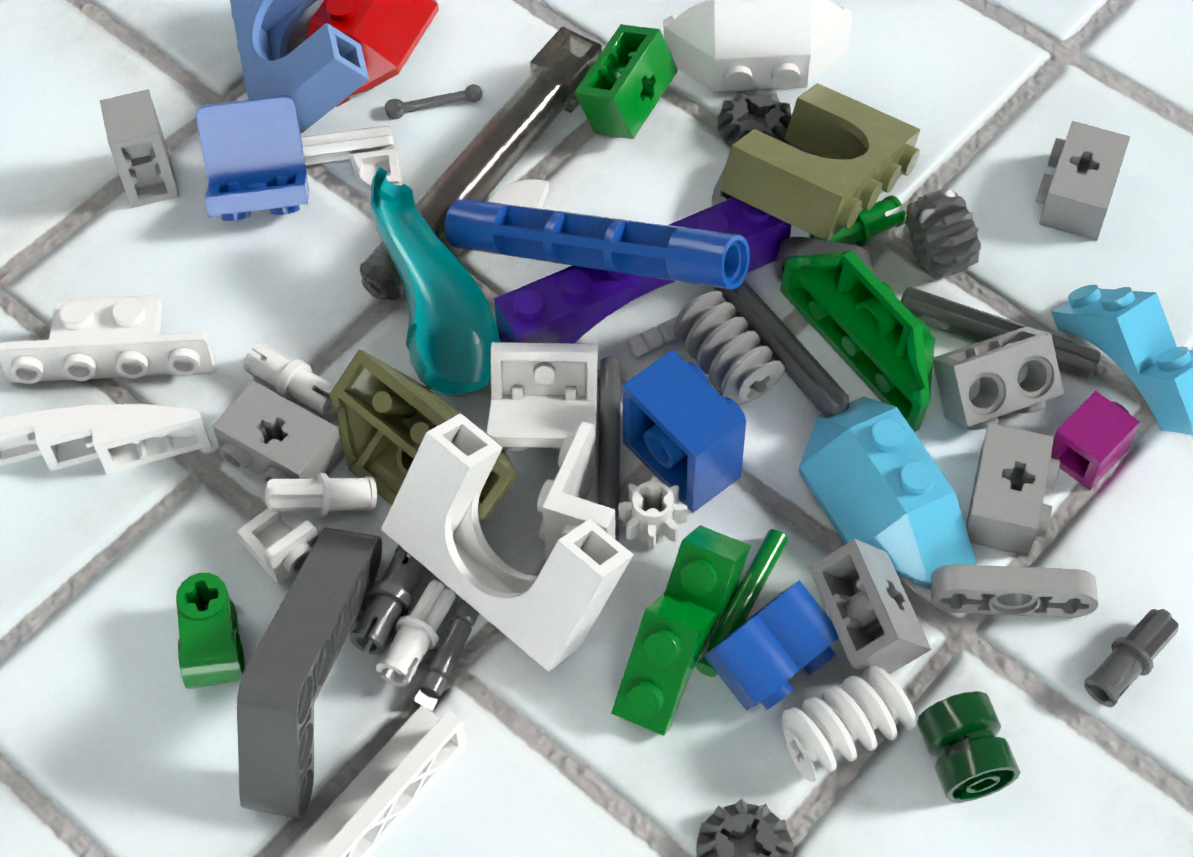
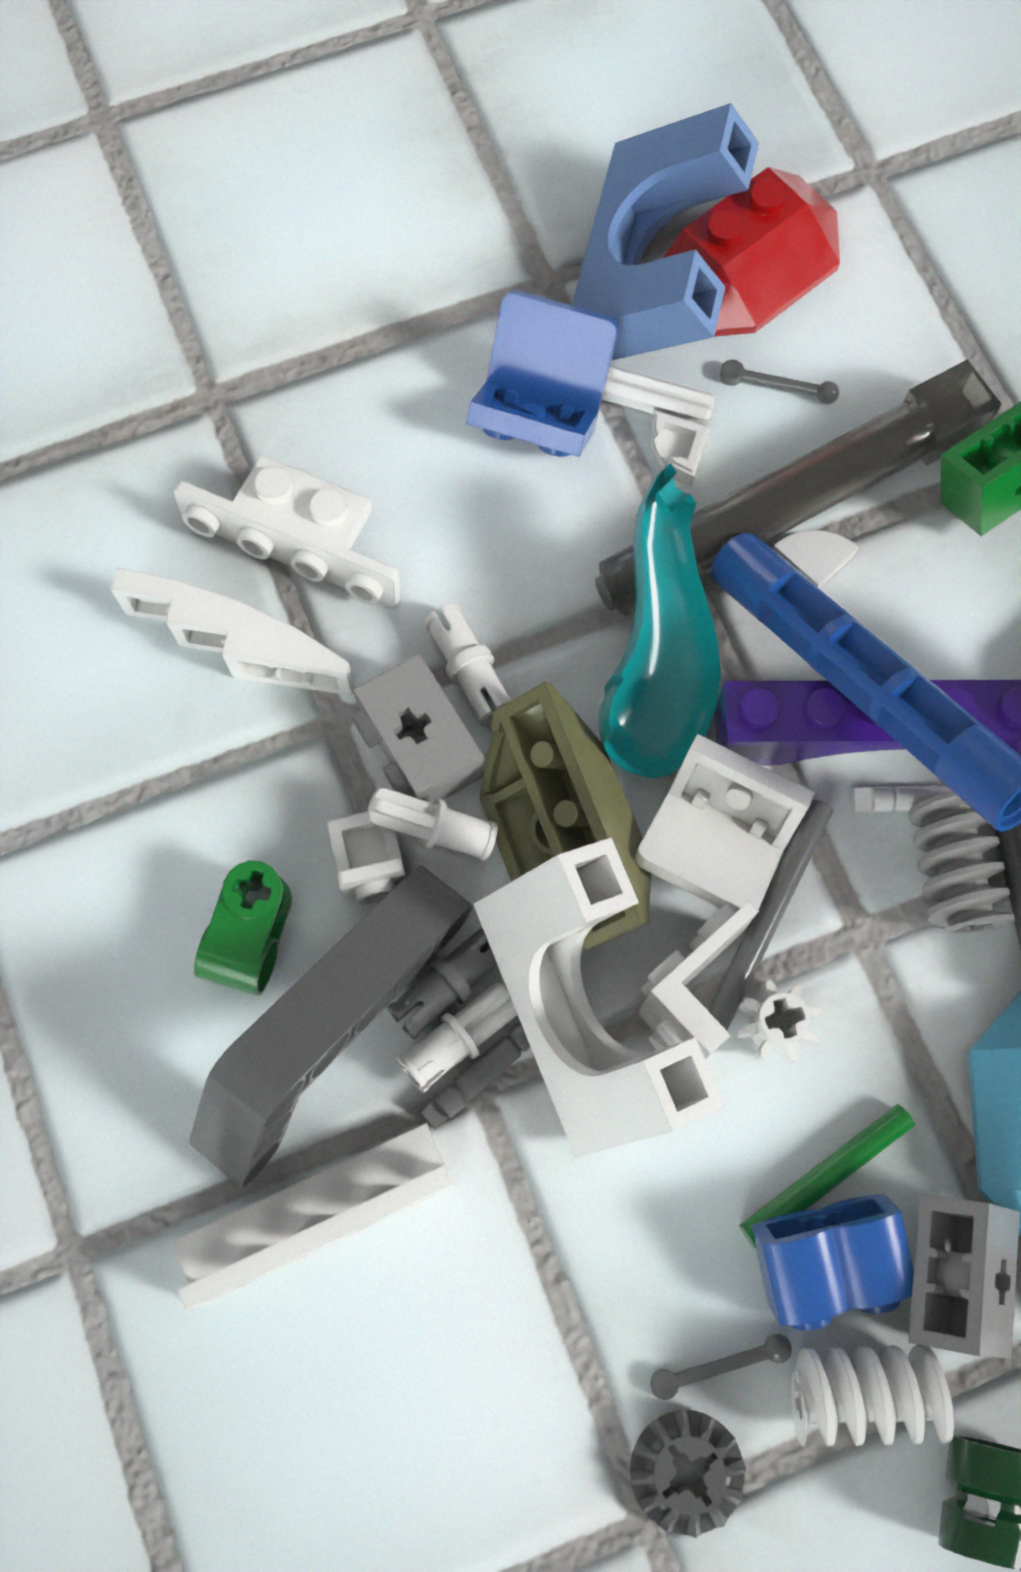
camera: 25 degrees right, 15 degrees up
(139, 148) = (428, 306): light grey brick -> none
(678, 628) = (745, 1182): green arch -> none
(683, 429) = (863, 947): blue brick -> none
(698, 798) = (666, 1383): none -> dark grey hinge

